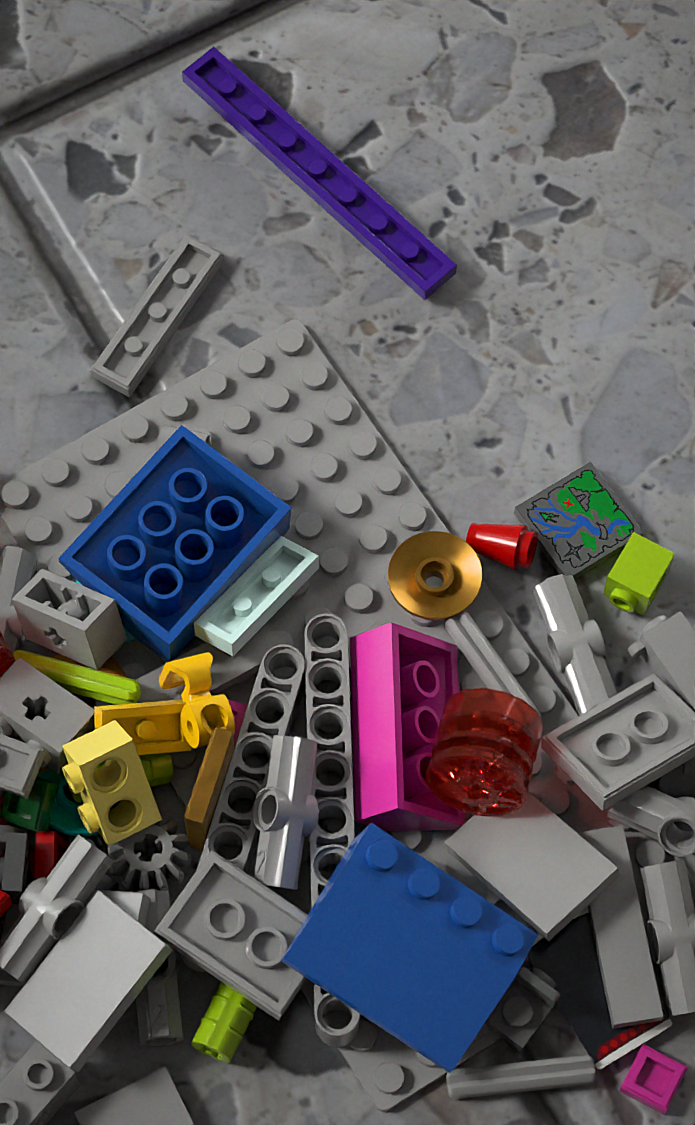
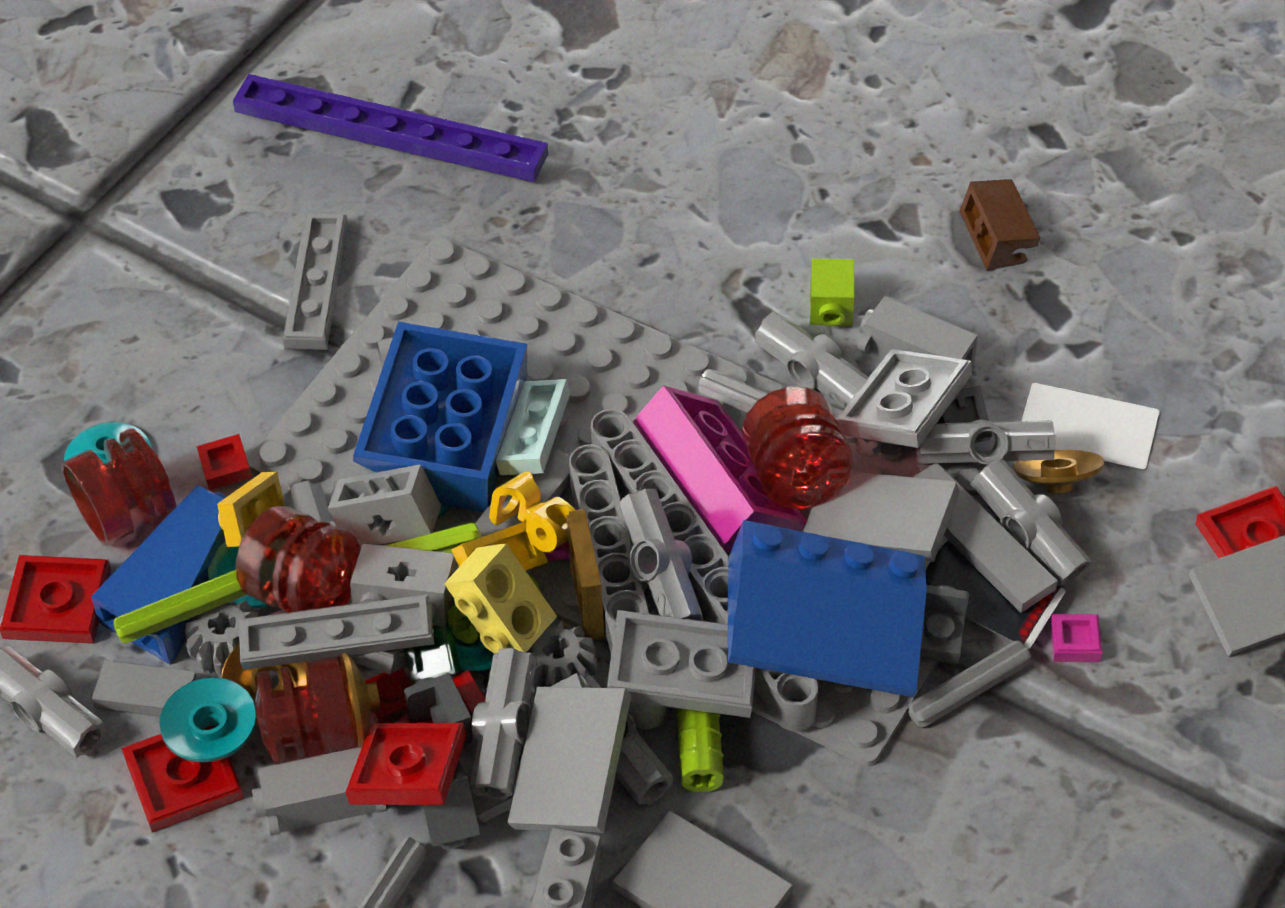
camera: 25 degrees left, 15 degrees down
(438, 556) = (671, 354): pearl gold dish -> none
(504, 543) = (710, 317): red cone -> none
(578, 522) = (758, 280): tile -> none

